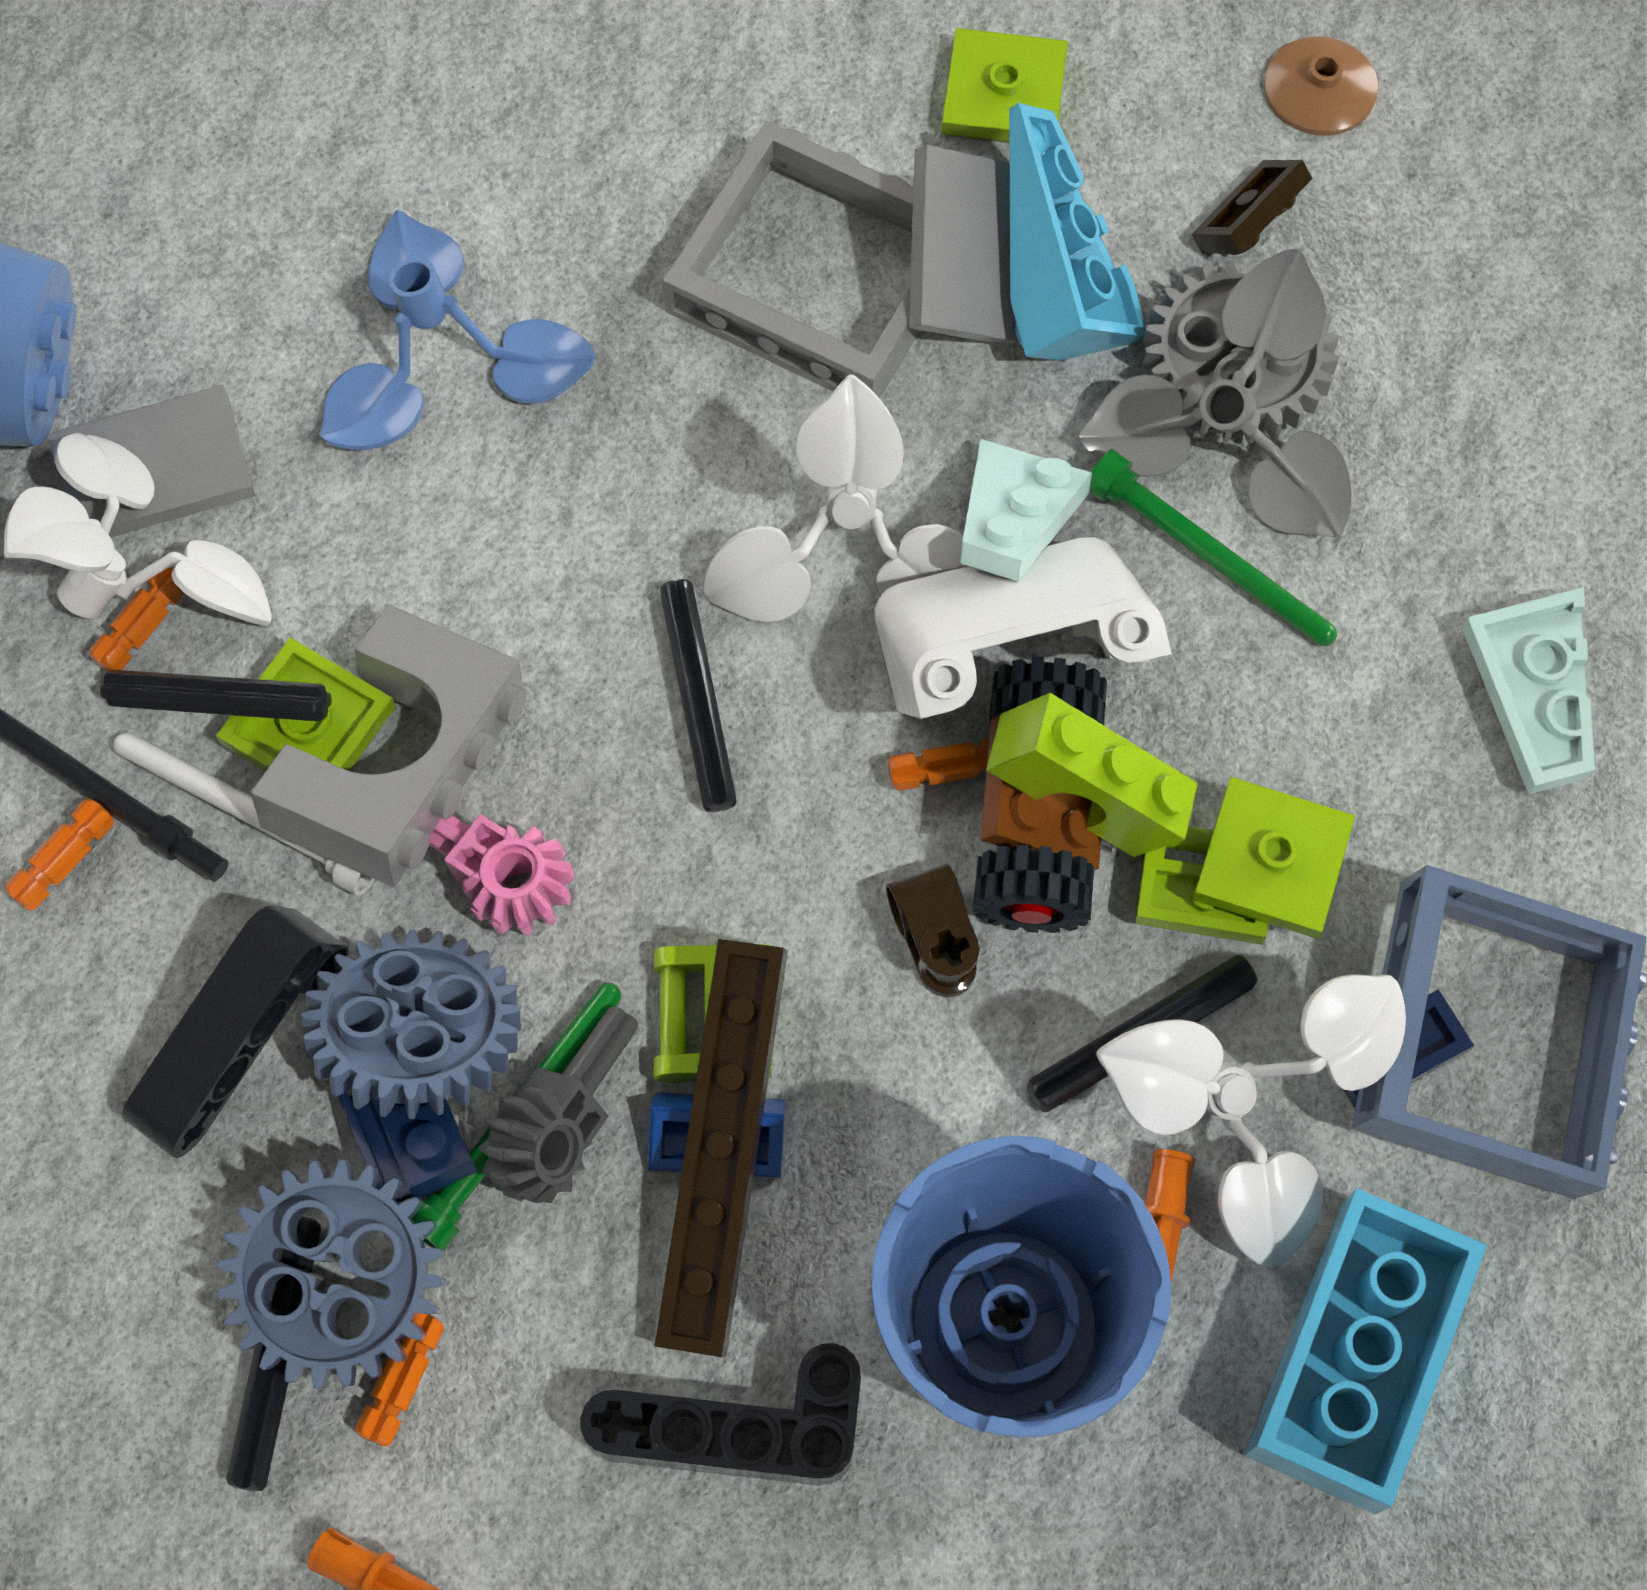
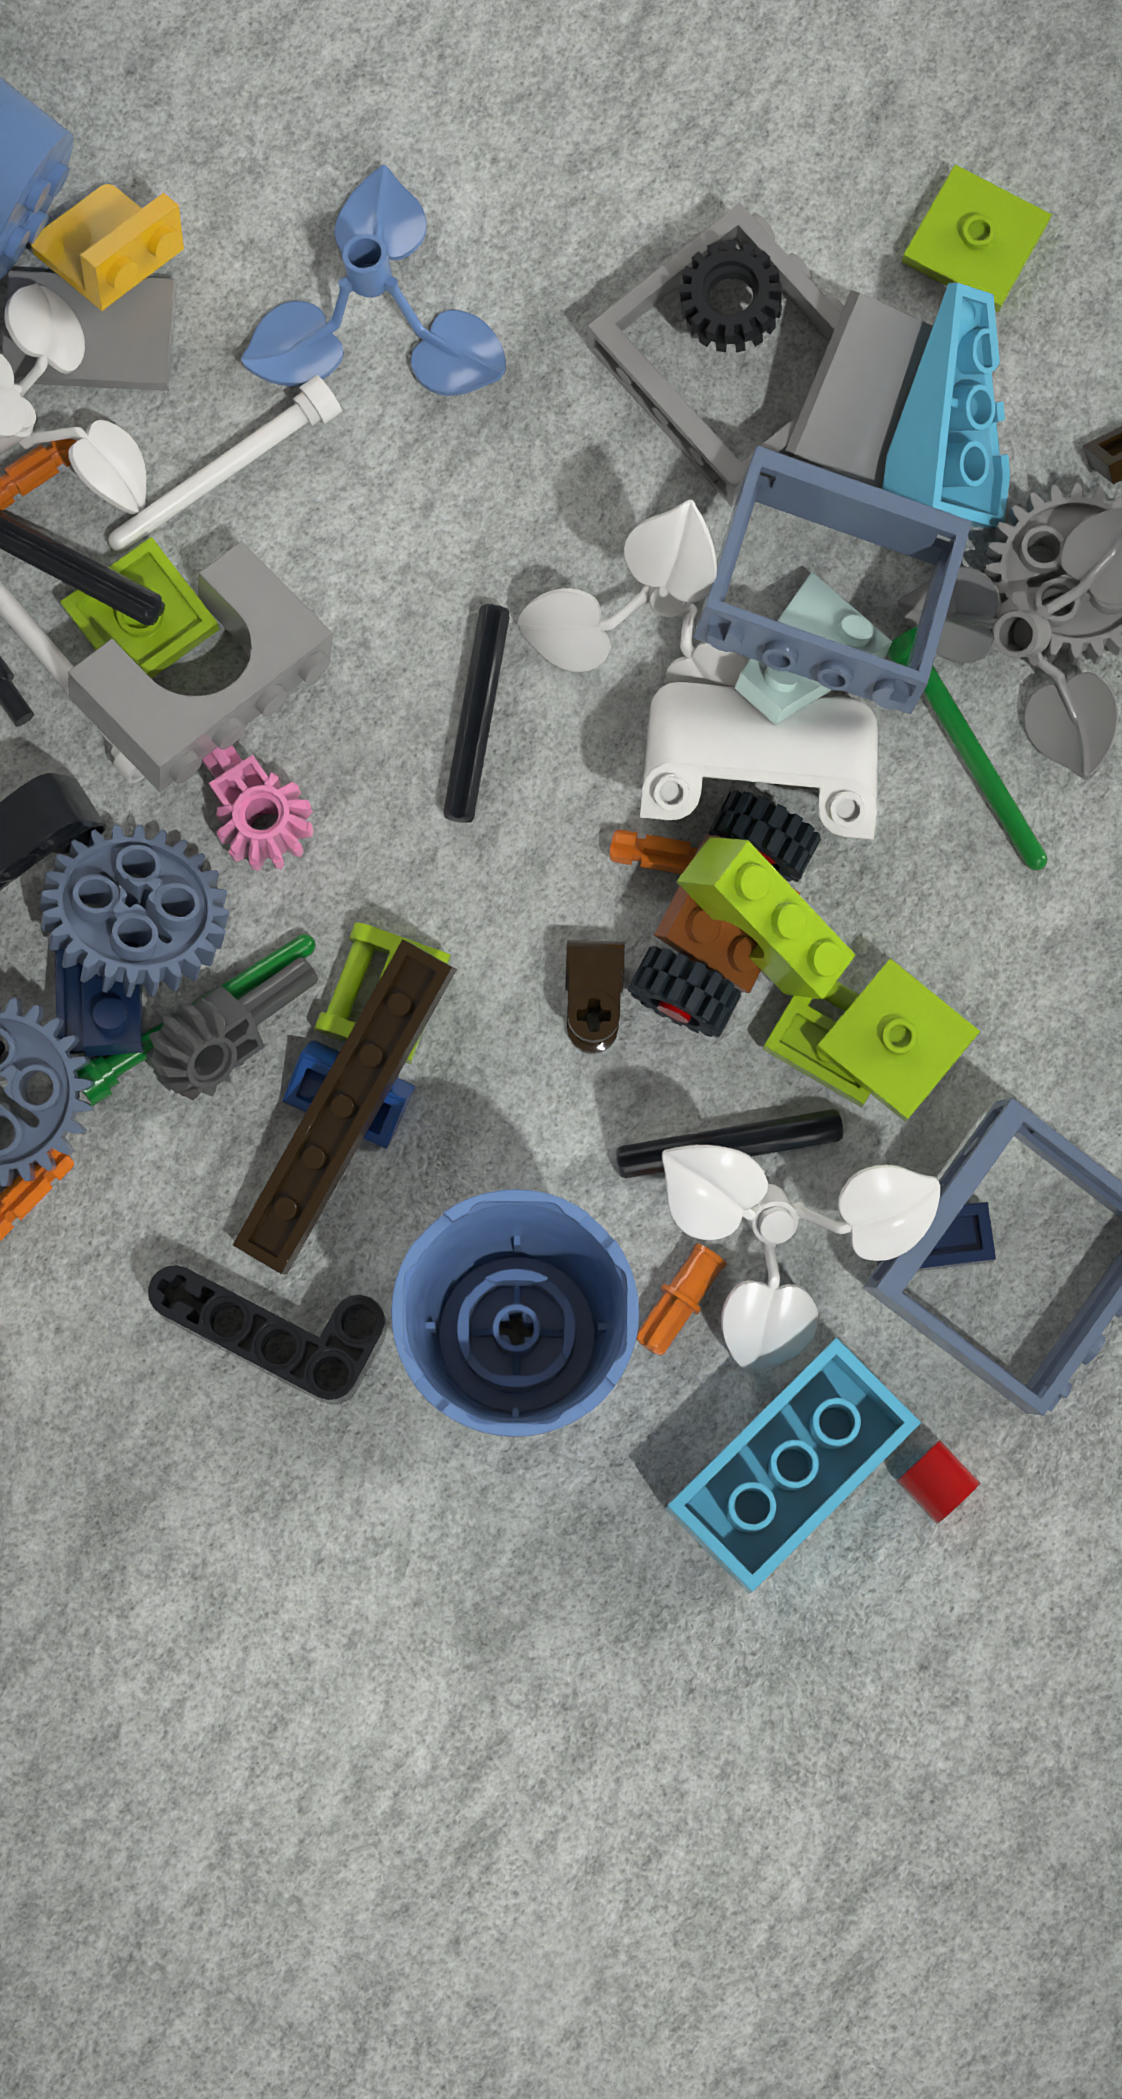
camera: 20 degrees right, 10 degrees up
(146, 371) = (110, 243): none -> yellow bracket
(410, 455) = (310, 406): none -> white piece
(792, 172) = (731, 264): none -> black tyre
(1022, 357) = (859, 512): none -> sand blue window
(1521, 1308) = (938, 1482): none -> red brick

